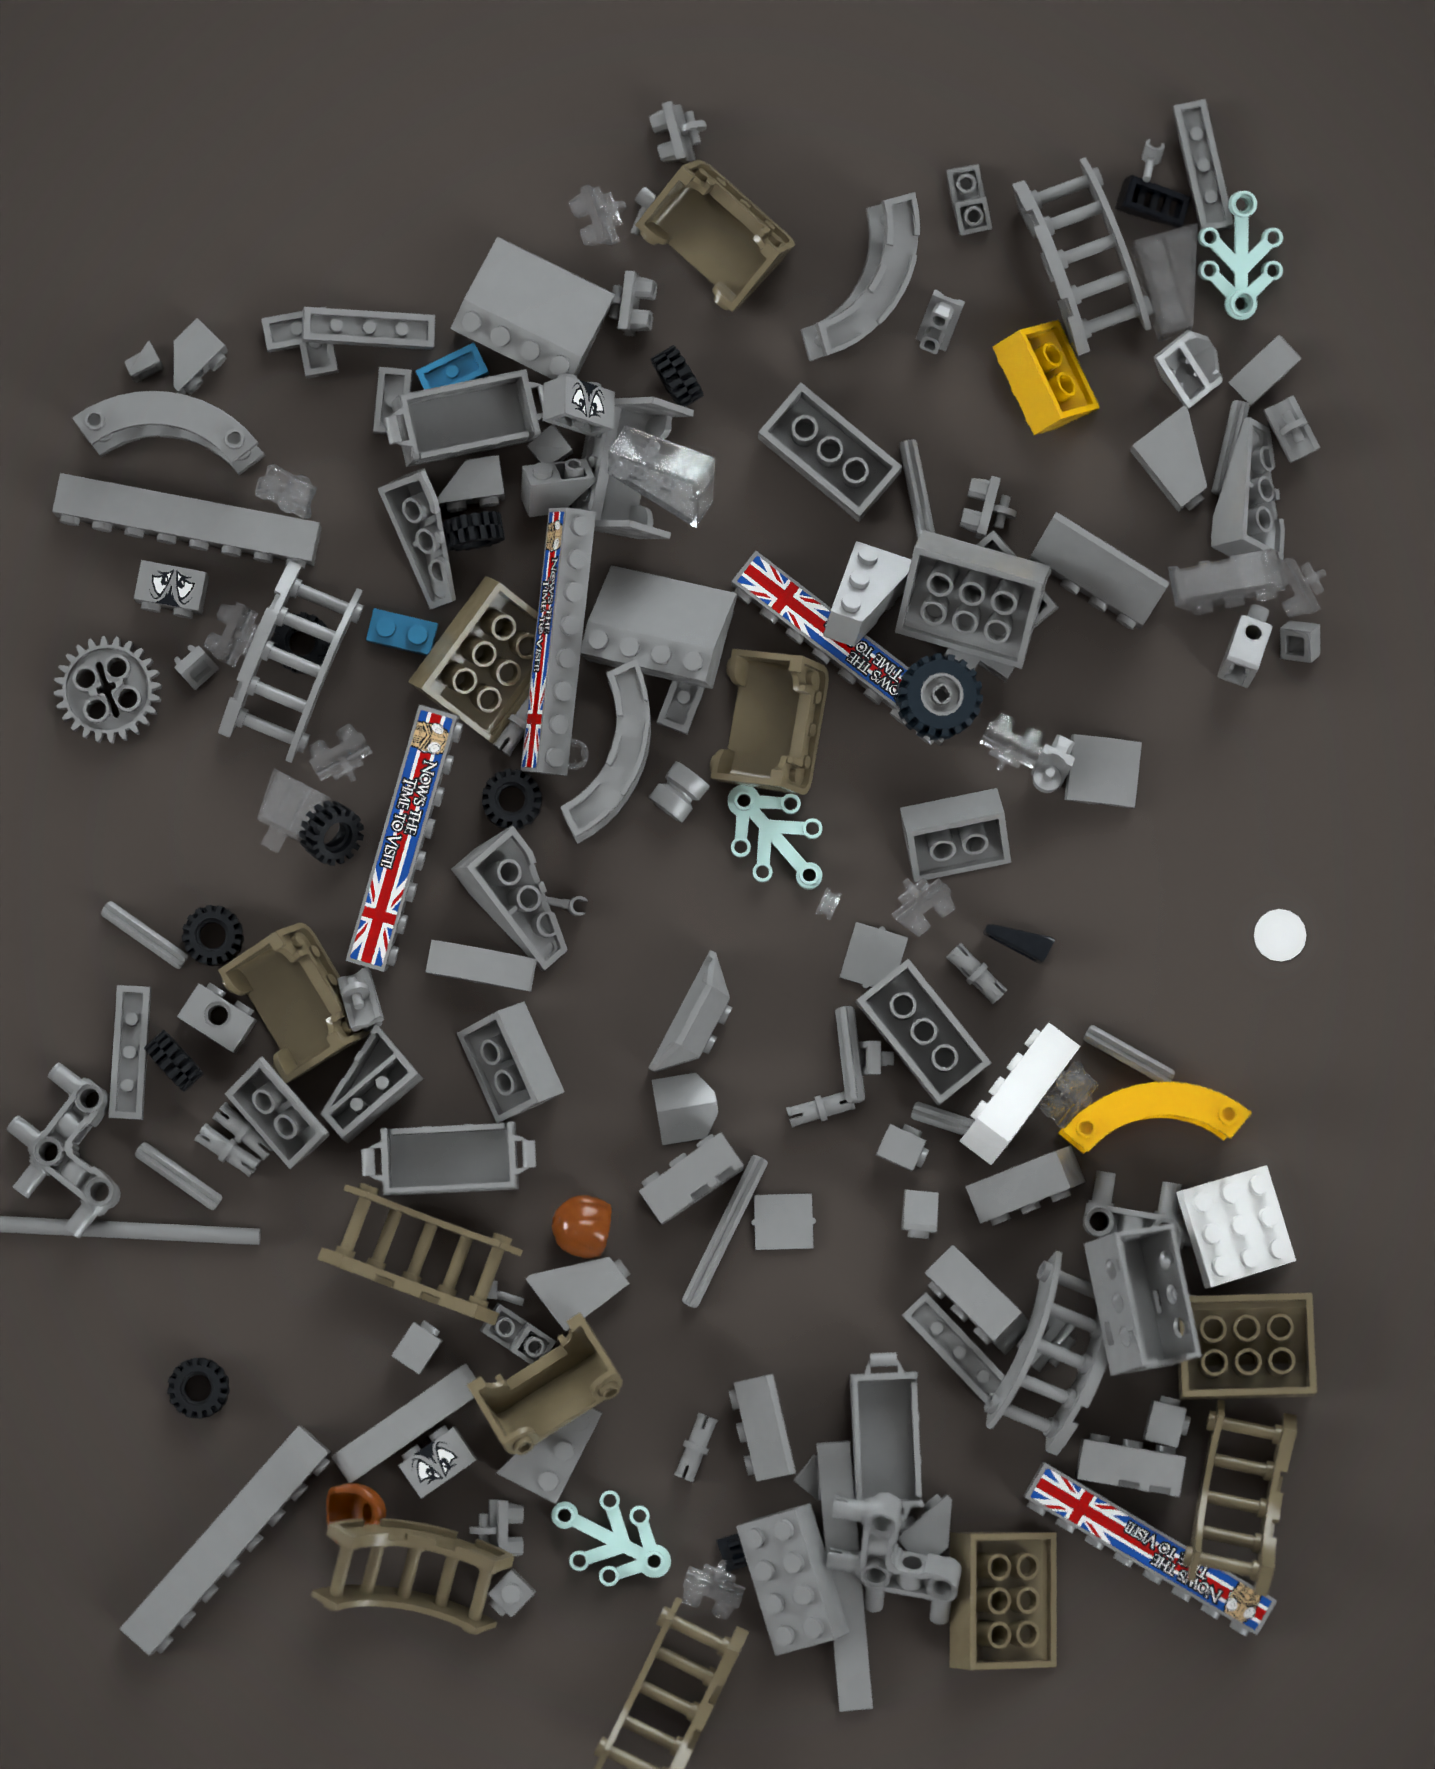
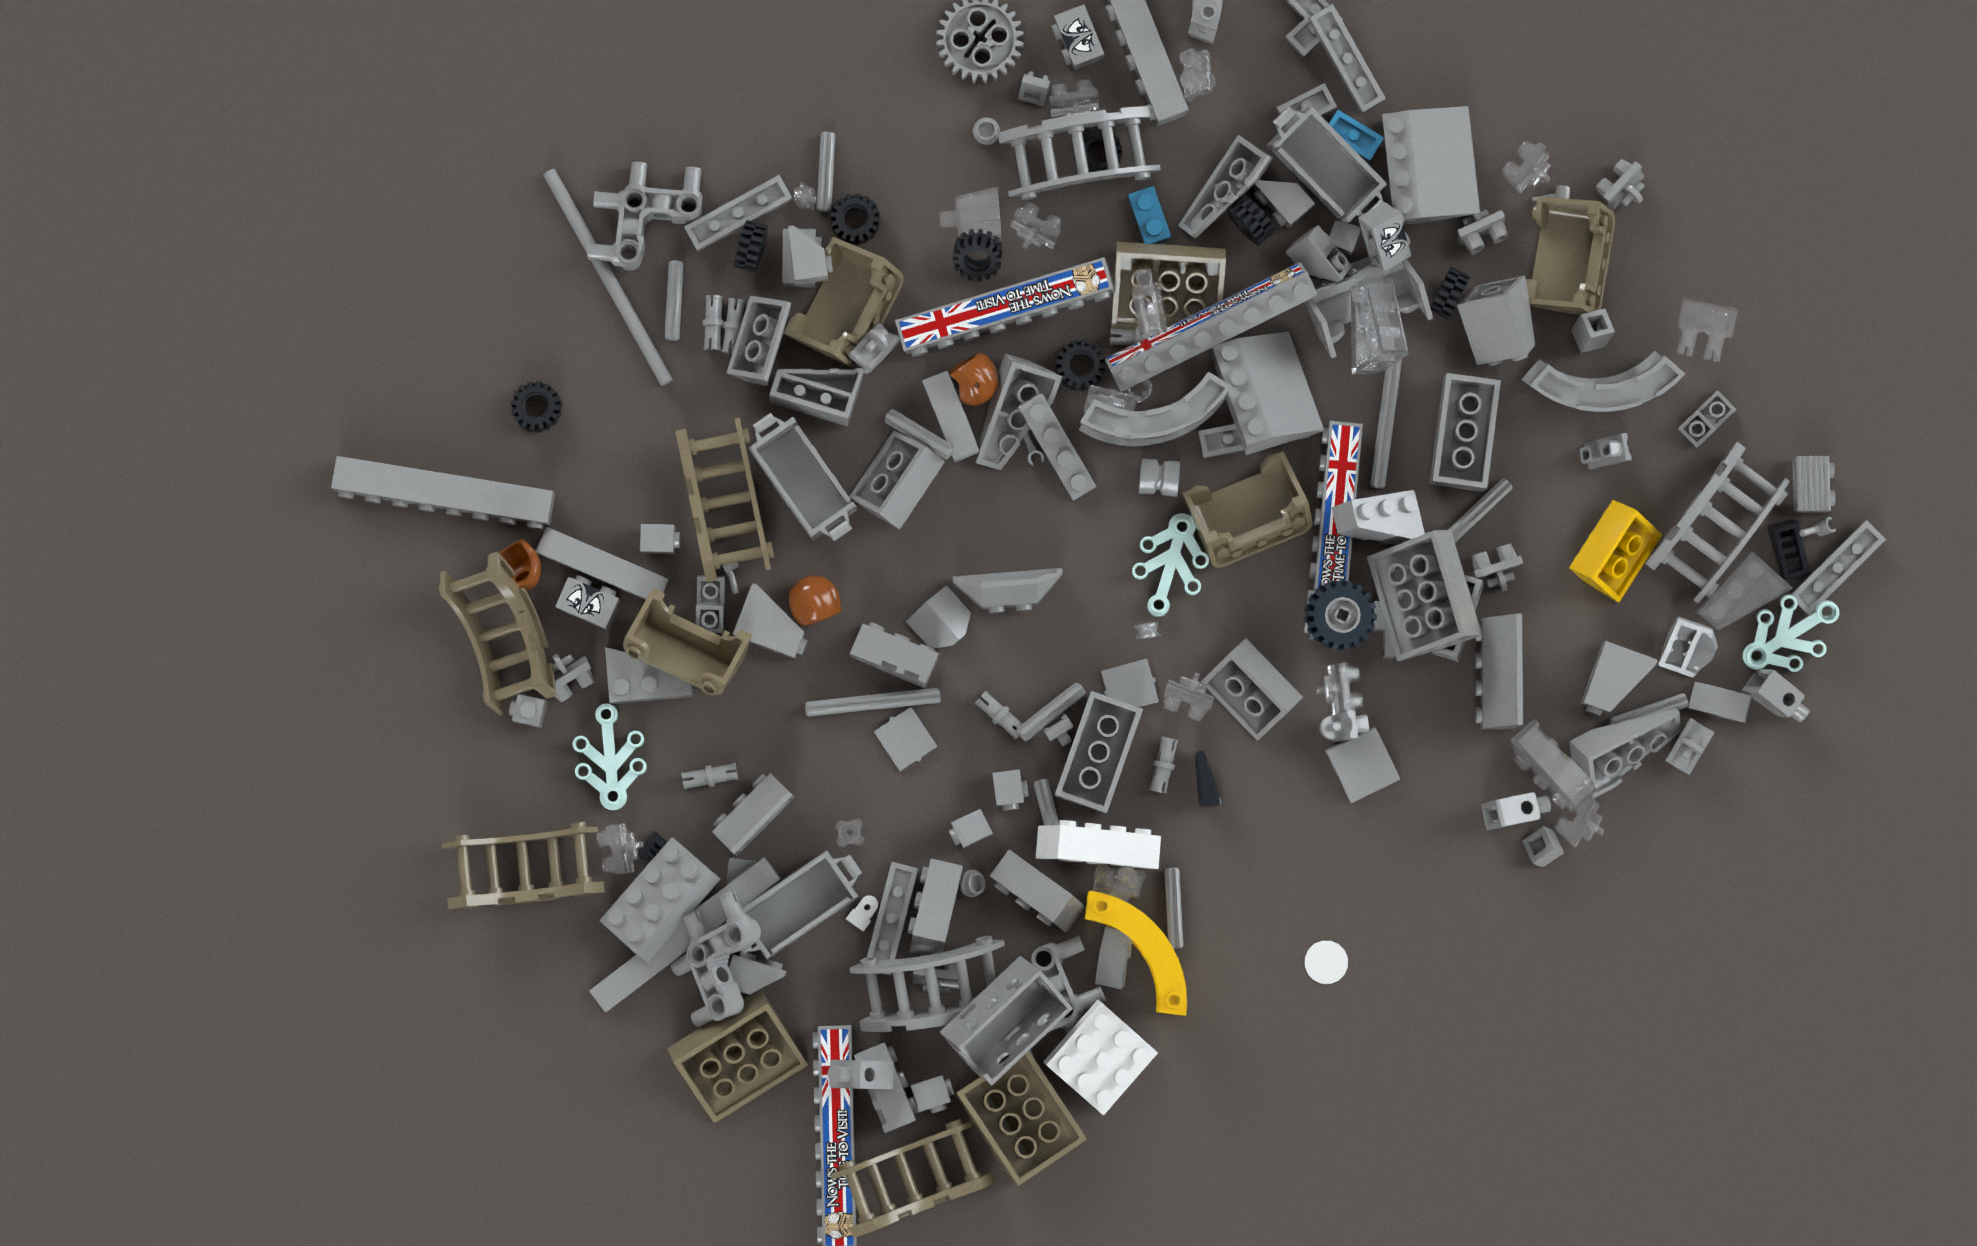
camera: 55 degrees right, 0 degrees up
(156, 972) = (805, 196): none -> clear plate
(207, 743) = (986, 131): none -> light grey plate
(225, 1009) = (808, 258): none -> light grey slope
(459, 914) = (976, 379): none -> dark orange piece
(478, 1009) = (919, 434): none -> light grey axle
(506, 693) = (1150, 315): none -> clear torso
(567, 790) = (1110, 397): none -> clear hips
(580, 876) = (1056, 446): none -> light grey plate
(737, 345) = (1498, 321): none -> light grey slope
(771, 529) = (1385, 426): none -> light grey axle
(807, 256) = (1593, 330): none -> light grey brick
(848, 1348) = (856, 837): none -> clear plate
(866, 134) = (1705, 317): none -> clear brick
(938, 1382) = (860, 916): none -> white piece
(975, 1246) = (972, 883): none -> light grey plate
(1097, 1492) = (851, 1074): none -> light grey torso
(1103, 136) = (1812, 484): none -> light grey brick
(1143, 1150) = (1113, 958): none -> light grey slope
(1293, 308) = (1776, 694): none -> light grey torso

